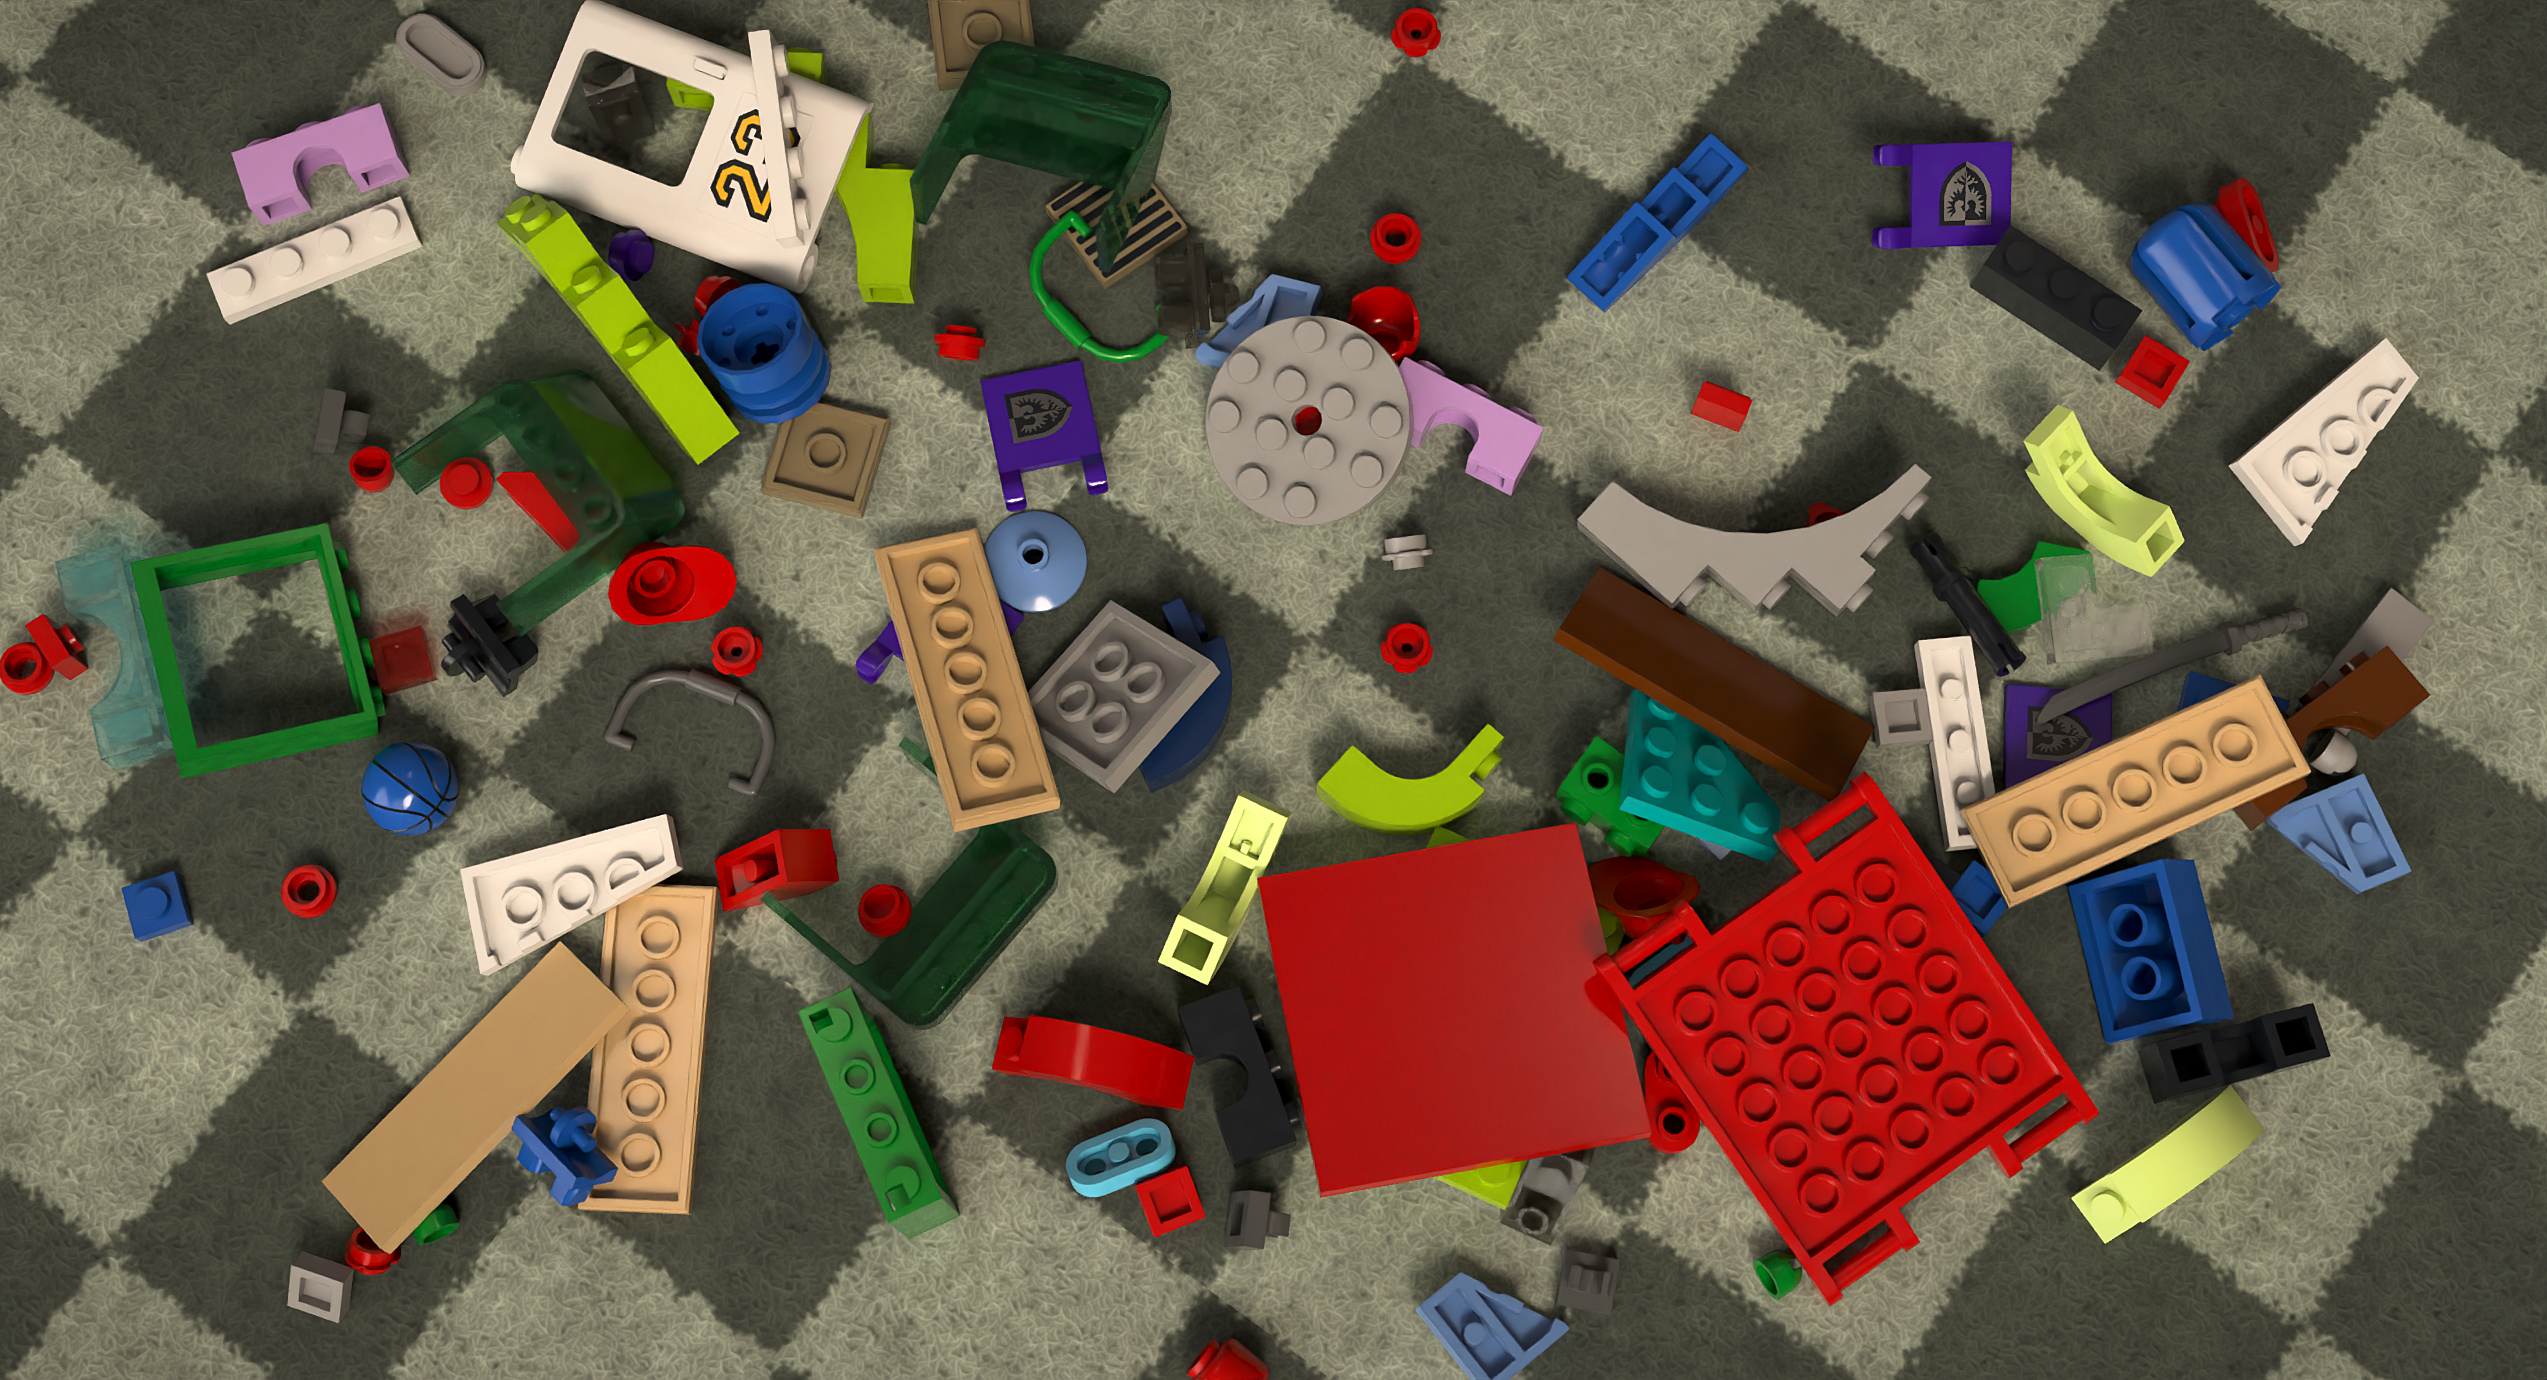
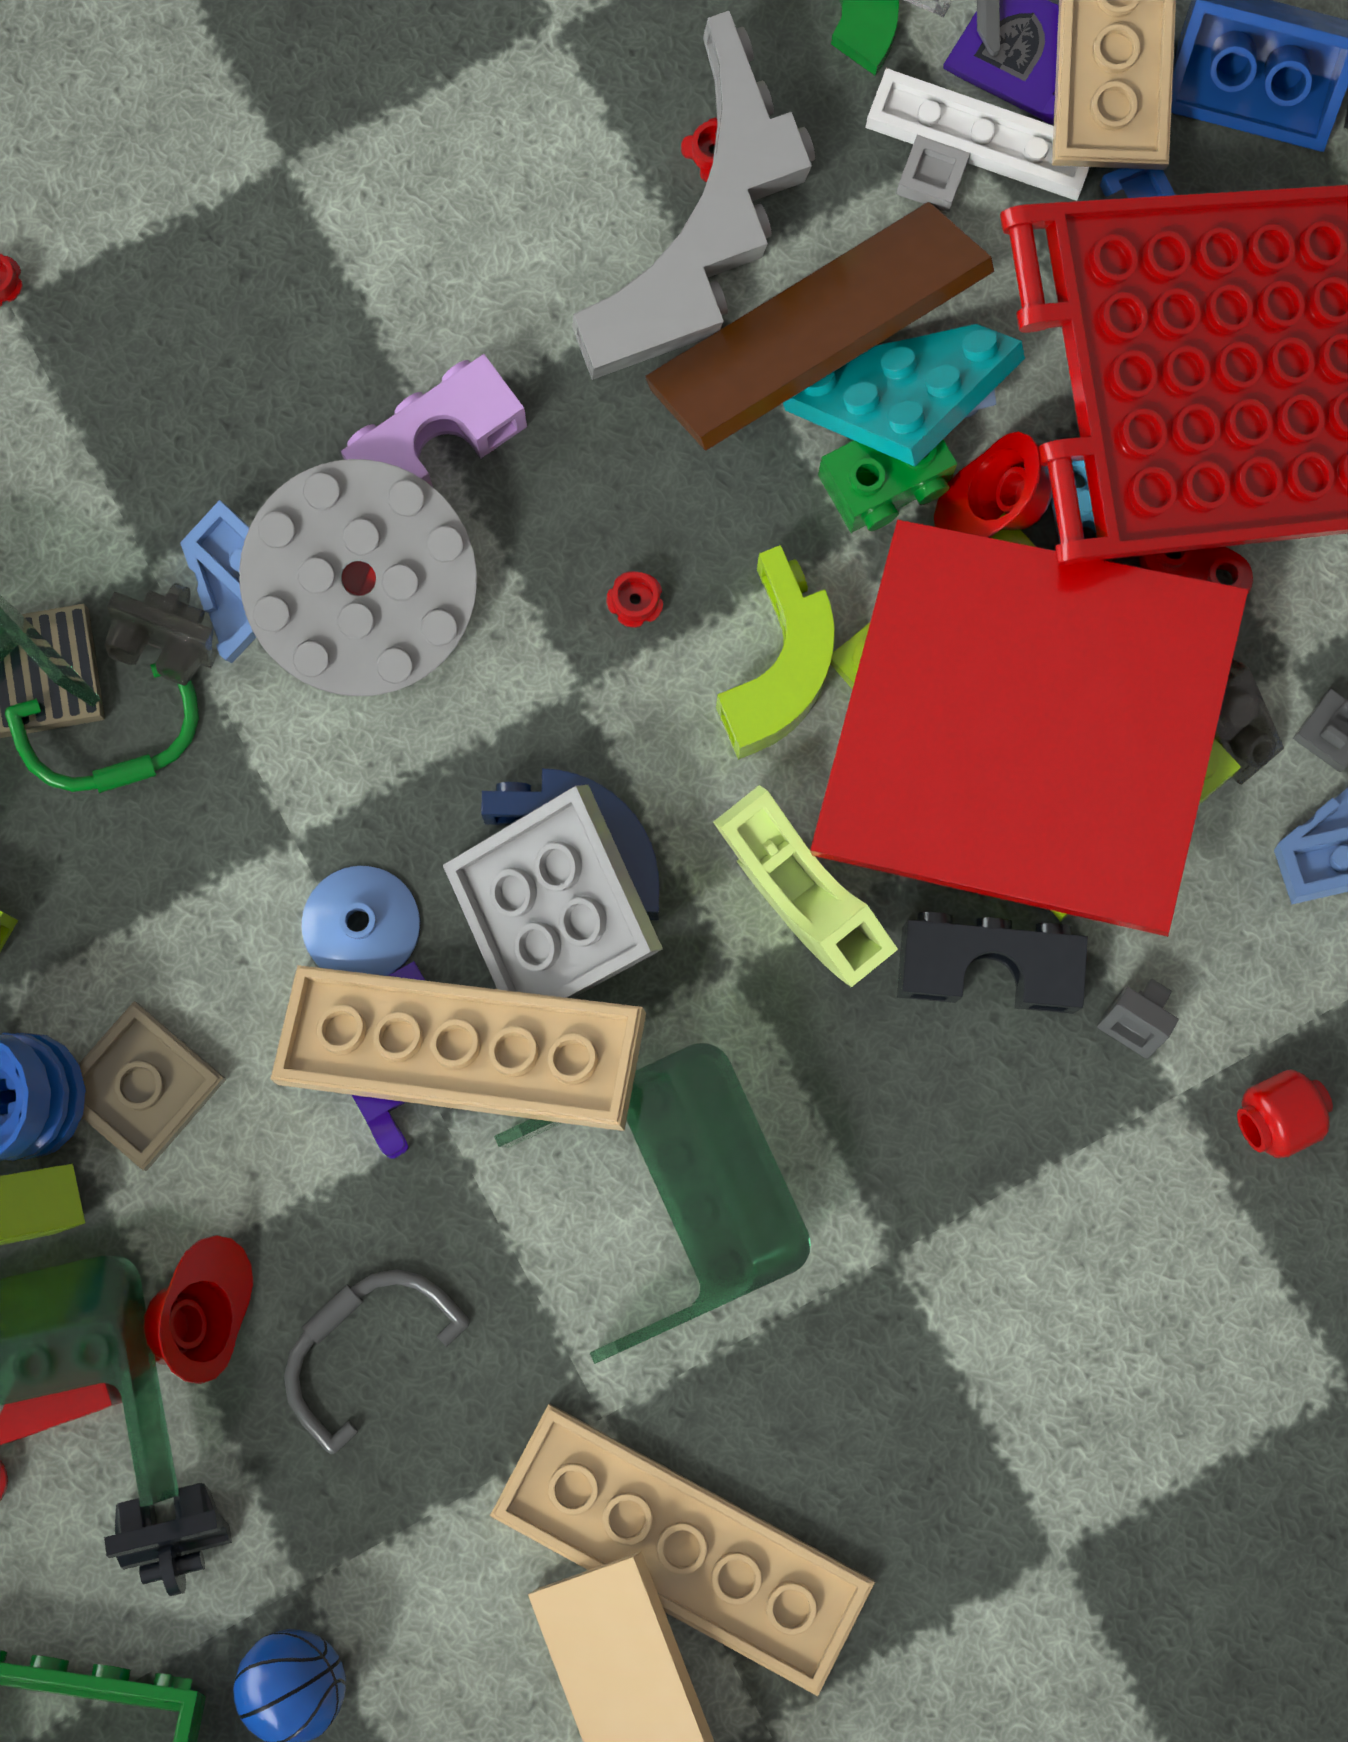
camera: 65 degrees left, 5 degrees up
(403, 660) = (139, 1635): clear red plate -> none
(553, 889) = (472, 1582): white wing -> none
(564, 1144) = (757, 1684): blue hips -> none
(734, 638) = (290, 1278): red plate -> none
(781, 863) = (561, 1333): red slope -> none
(878, 1114) = (894, 1340): green window -> none
(884, 910) = (656, 1241): red plate -> none
(959, 343) = (89, 891): red plate -> none
(1041, 423) = (218, 847): dark purple flag -> none
(1094, 1060) = (912, 1103): red arch -> none
(1120, 1157) = (1016, 1119): medium azure plate -> none
(1169, 1200) = (1081, 1090): red plate -> none
(1389, 318) = (287, 448): red hair -> none
(1395, 224) = (196, 391): red plate -> none
(1406, 551) = (538, 551): light grey plate -> none
(1657, 223) = (321, 147): blue slope -> none
(1721, 406) = (542, 180): red tile -> none
(1956, 588) = (854, 54): black pin -> none

